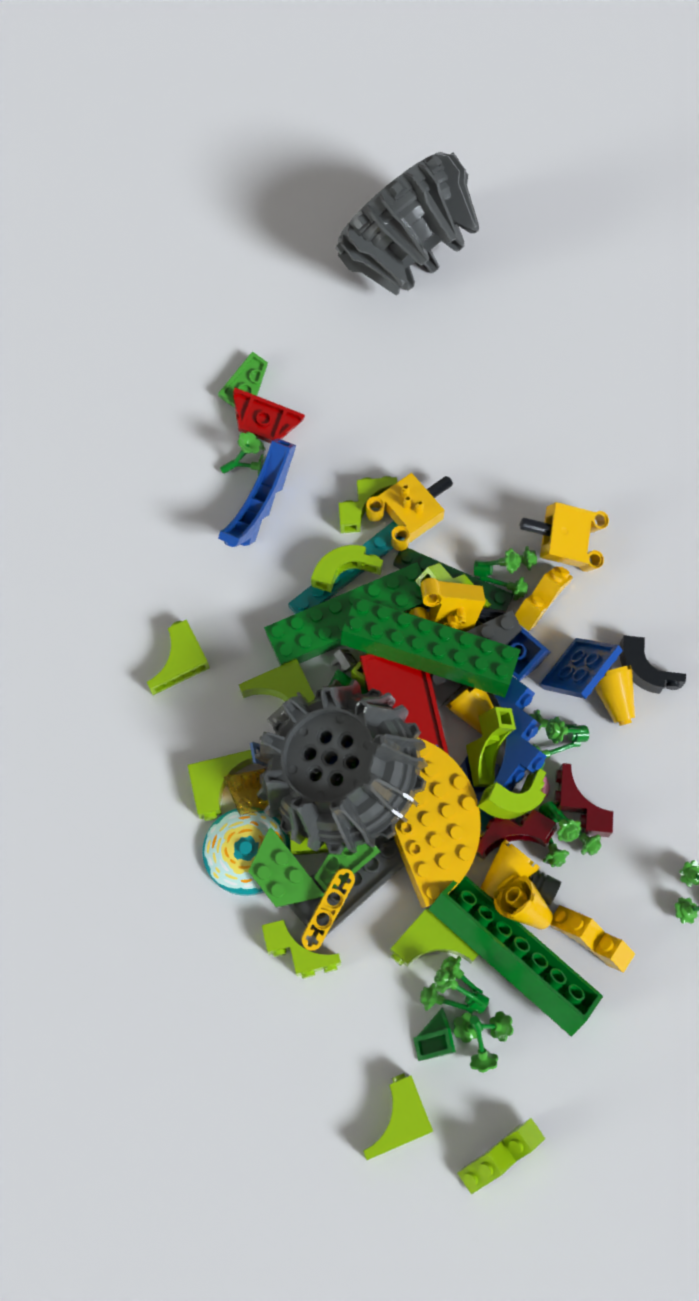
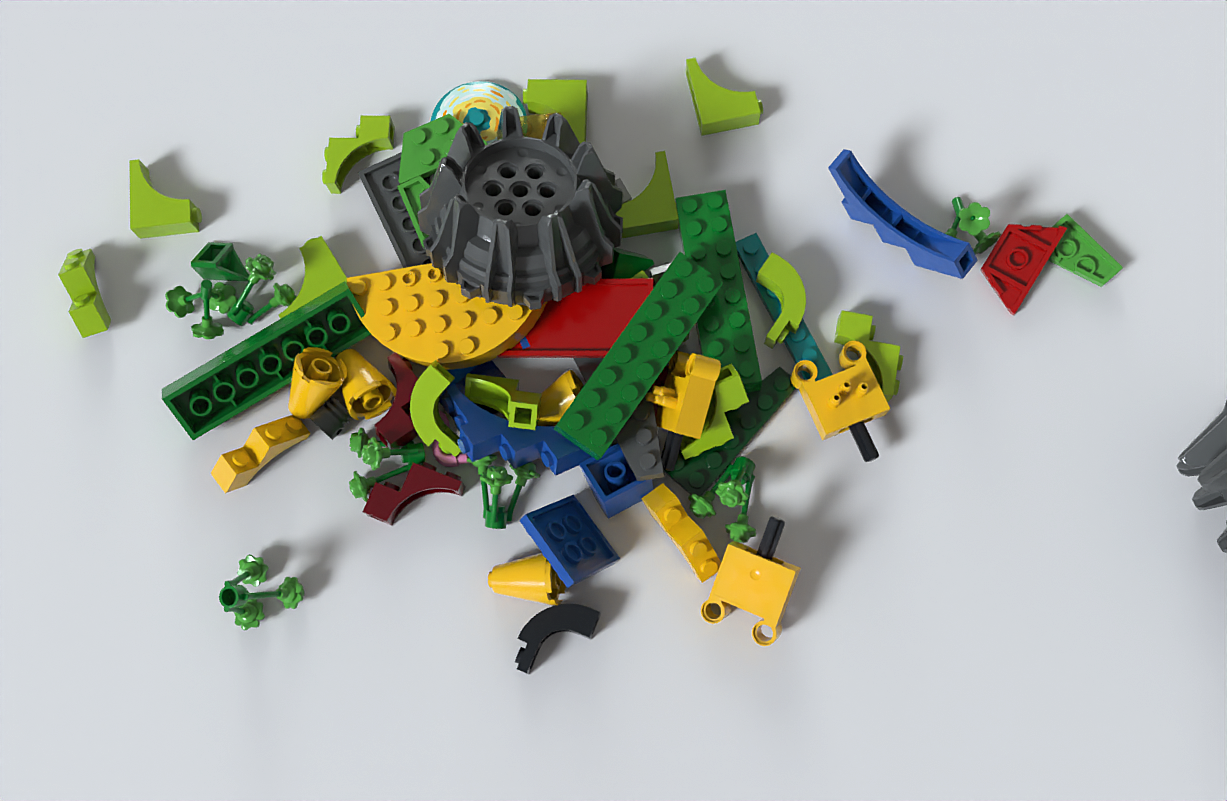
camera: 110 degrees right, 5 degrees up
(325, 907) = (381, 182): yellow beam -> none

